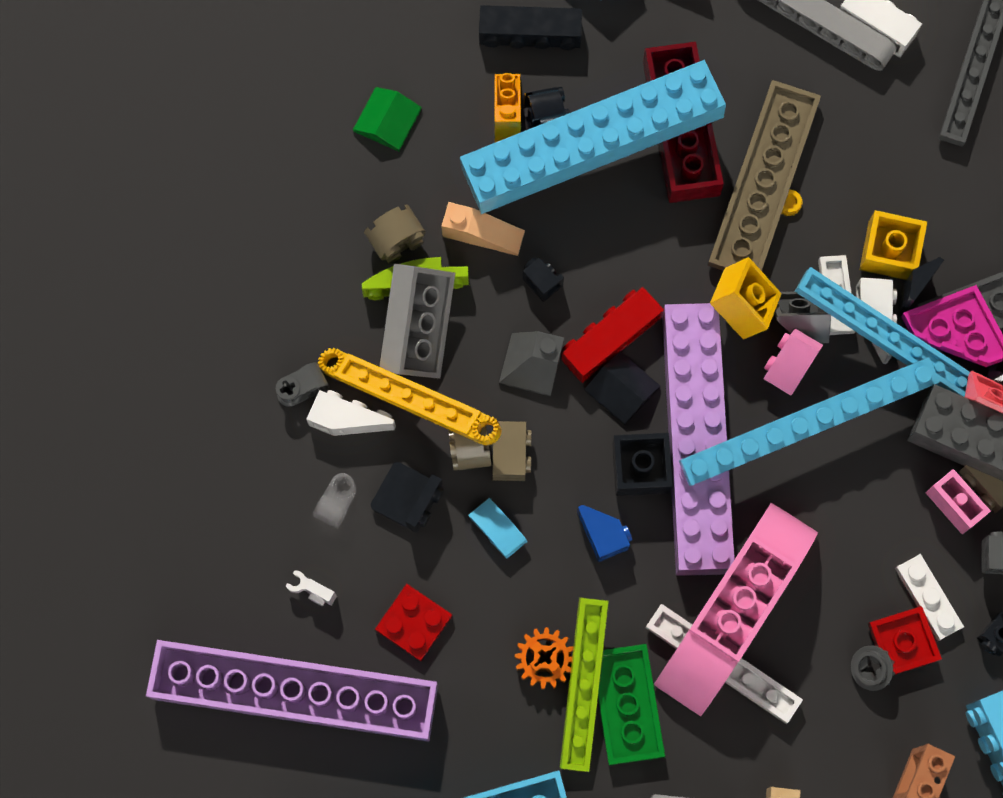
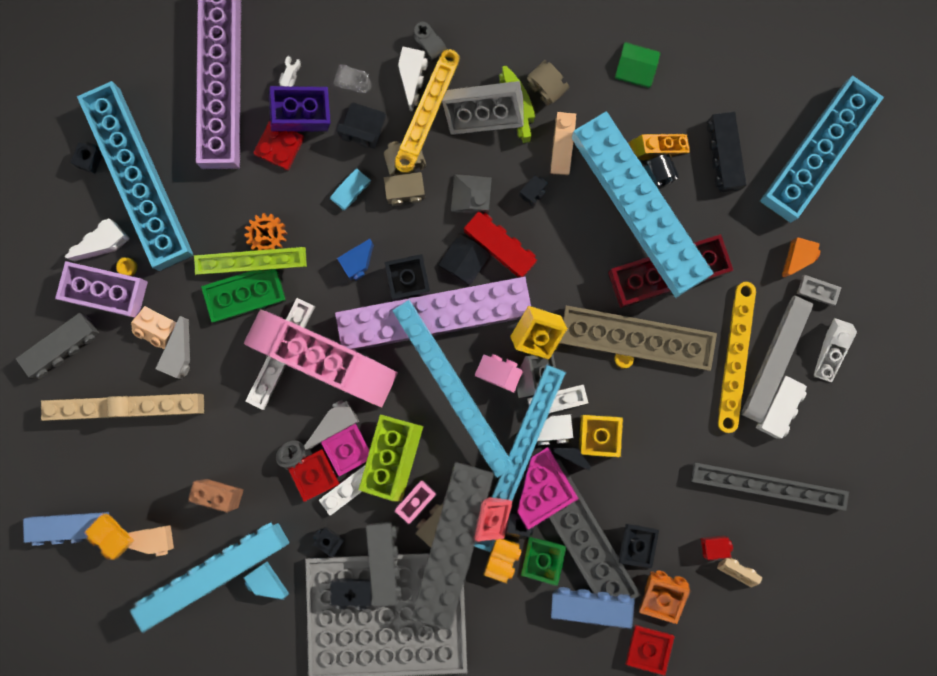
camera: 80 degrees right, 10 degrees up
(371, 578) = (299, 108): none -> dark purple brick
(805, 63) = (736, 357): none -> yellow plate
(832, 598) = (335, 421): none -> light grey slope
(873, 588) = (346, 449): none -> dark pink plate
(893, 527) = (390, 458): none -> lime slope

